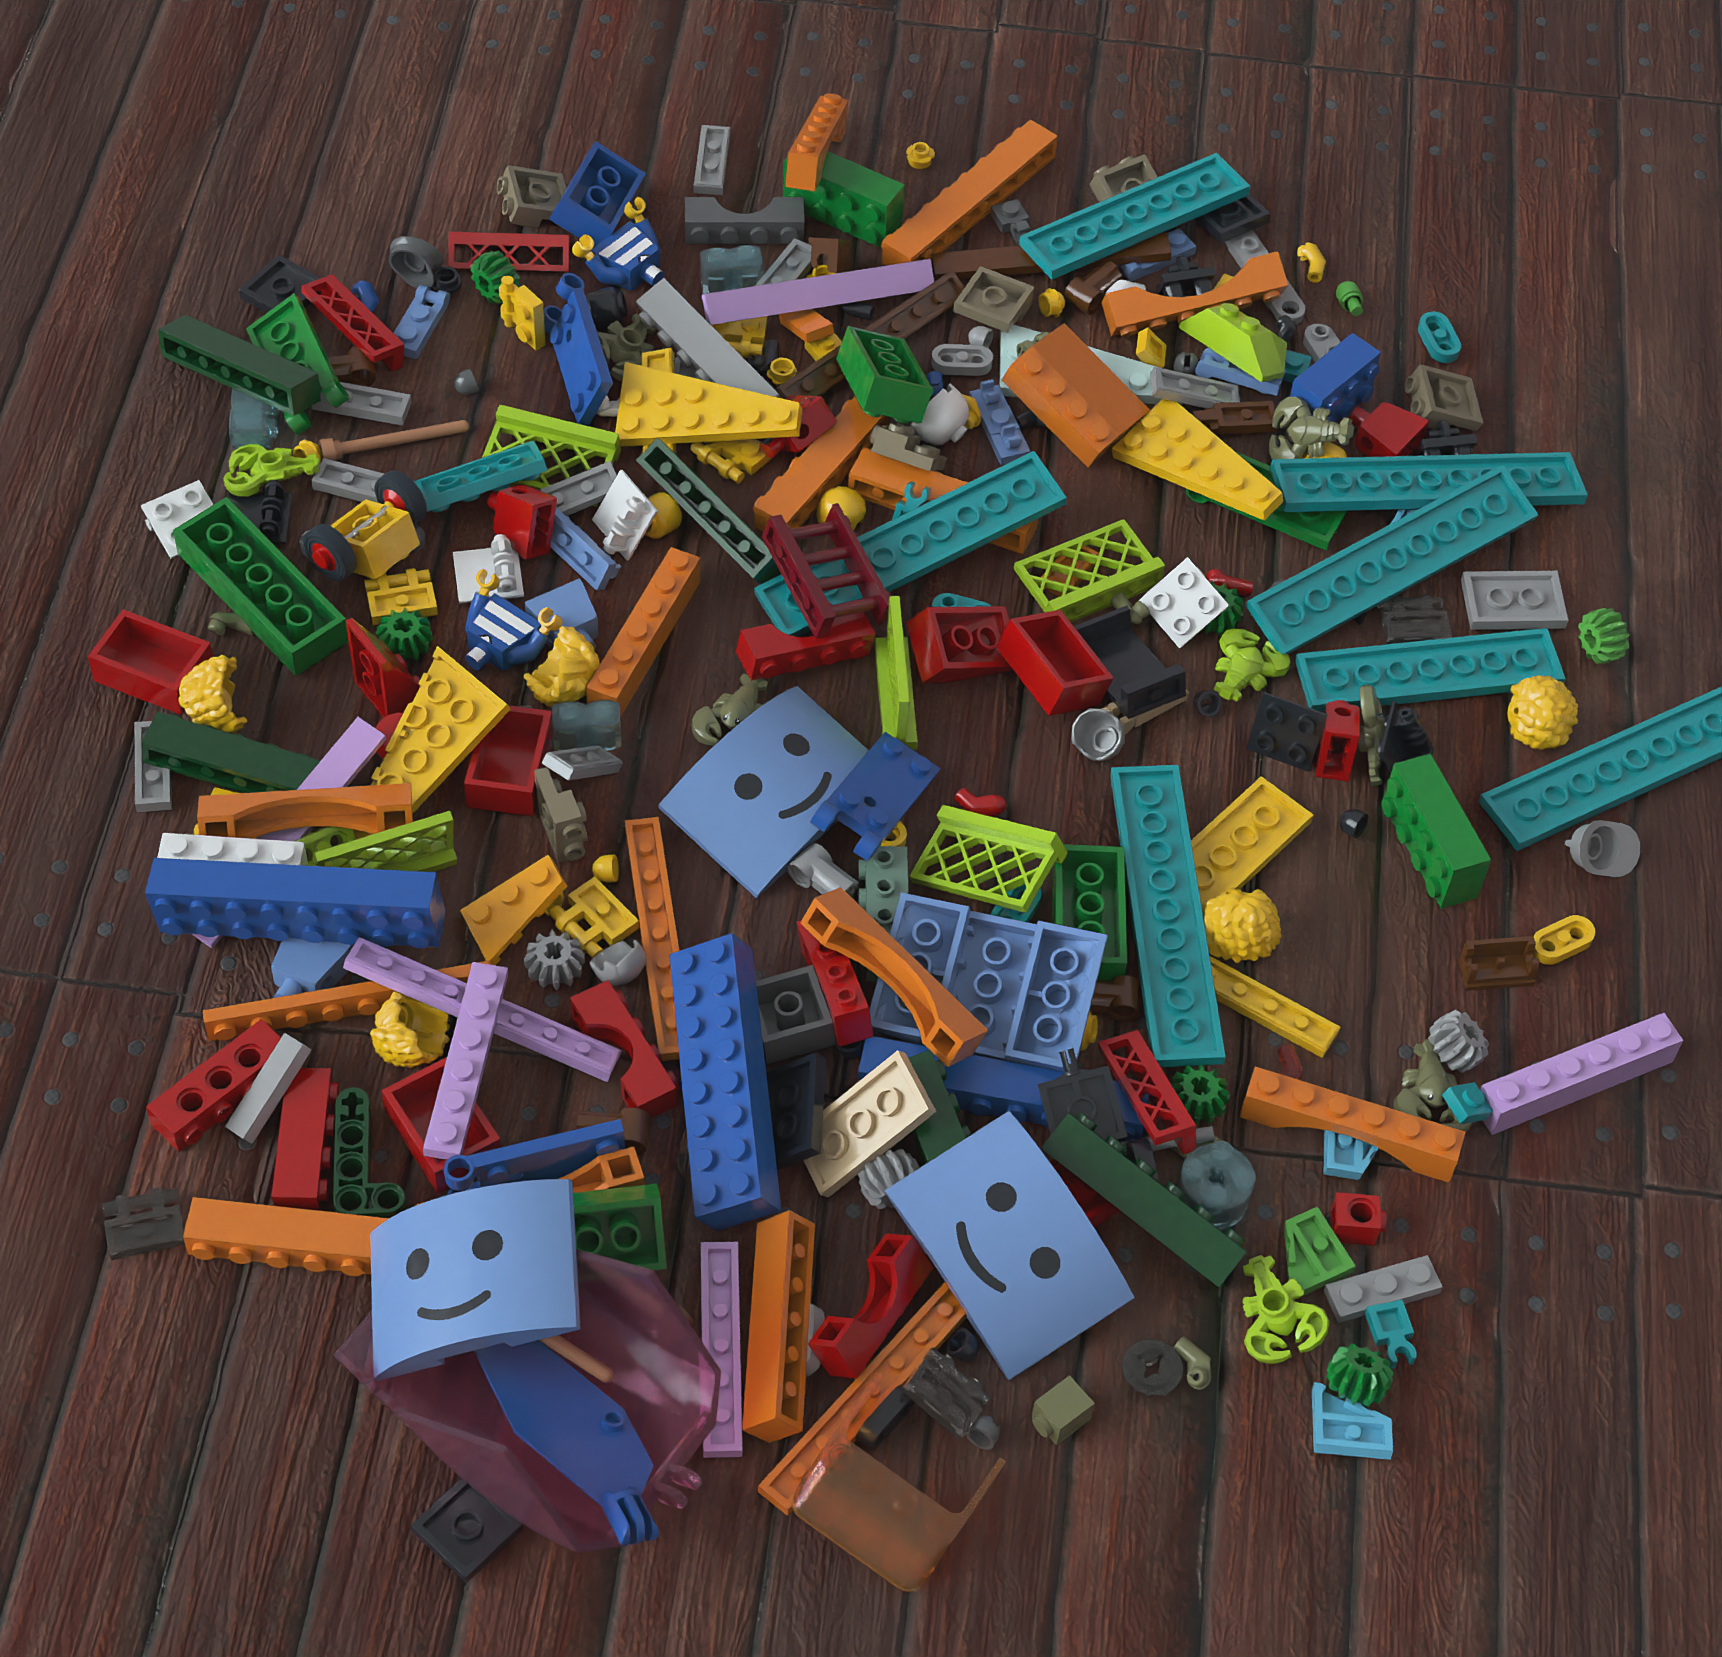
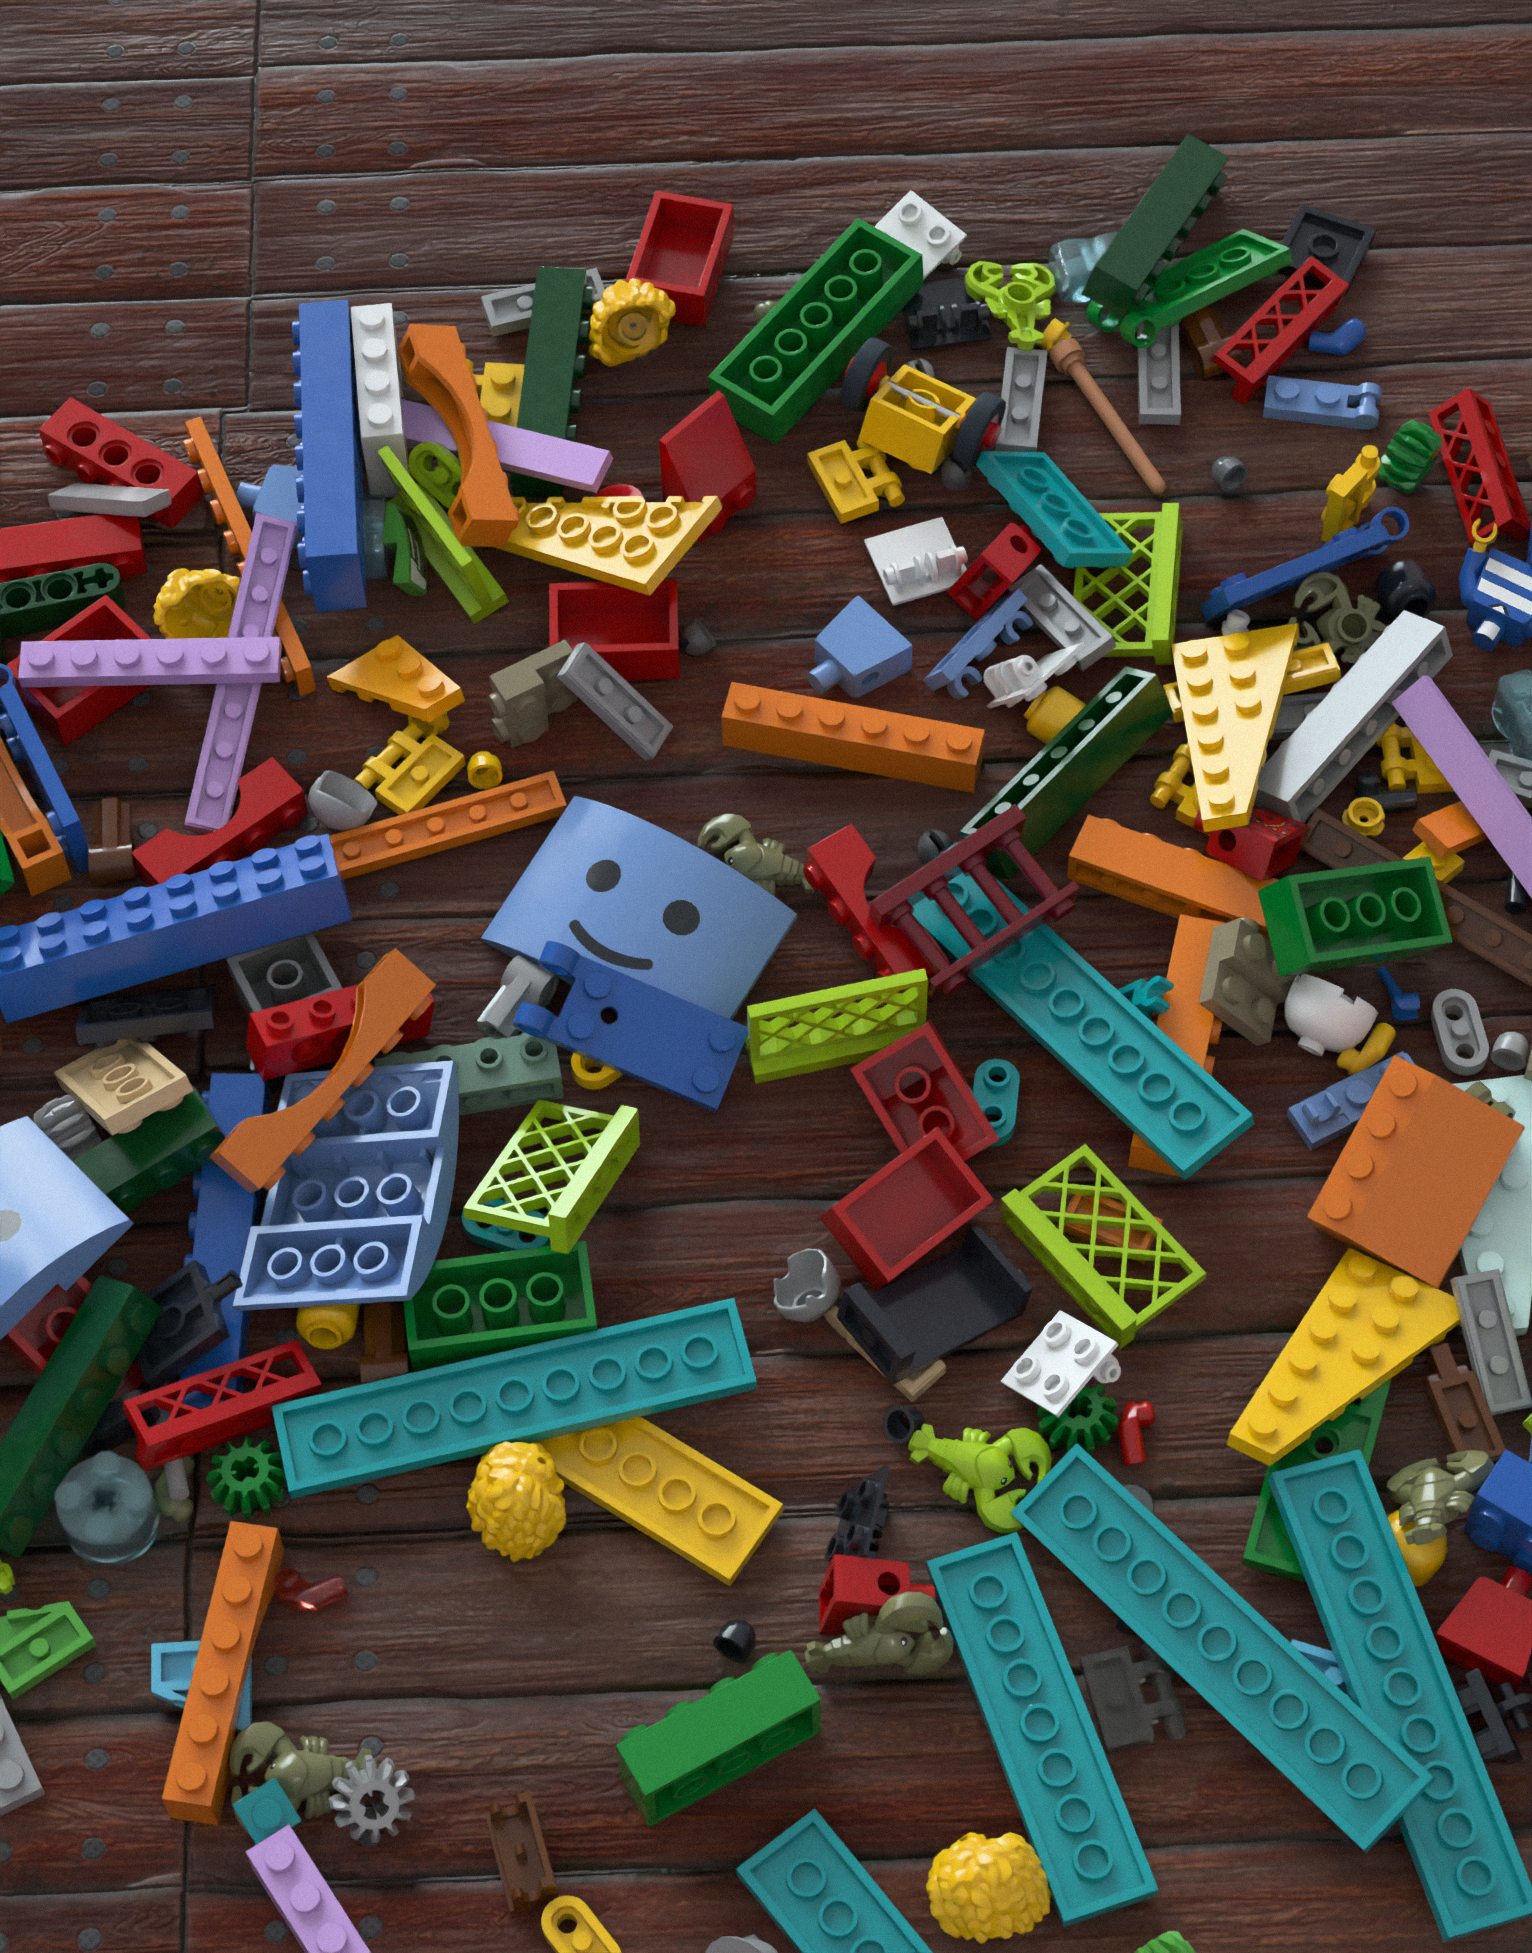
camera: 85 degrees right, 5 degrees up
(405, 633) = (790, 492): green gear -> none
(414, 260) = (1410, 366): dark grey piece -> none
(446, 279) = (1399, 406): black plate -> none
(502, 631) = (820, 583): blue torso -> none
(554, 960) = (338, 739): light grey gear -> none
(566, 669) = (762, 659): yellow hair -> none
(586, 725) = (690, 703): clear light blue brick -> none
(745, 609) = (927, 848): none -> dark grey hinge
(848, 499) = (1135, 927): yellow hair -> none
(986, 805) = (667, 1166): red arm -> none
(1137, 611) = (1041, 1309): olive arm -> none
(1272, 1009) = (411, 1554): yellow tile -> none
(1350, 1231) = (74, 1673): red brick -> none
(1403, 737) = (866, 1681): black hinge -> none
(1514, 600) = (1210, 1841): light grey plate -> none

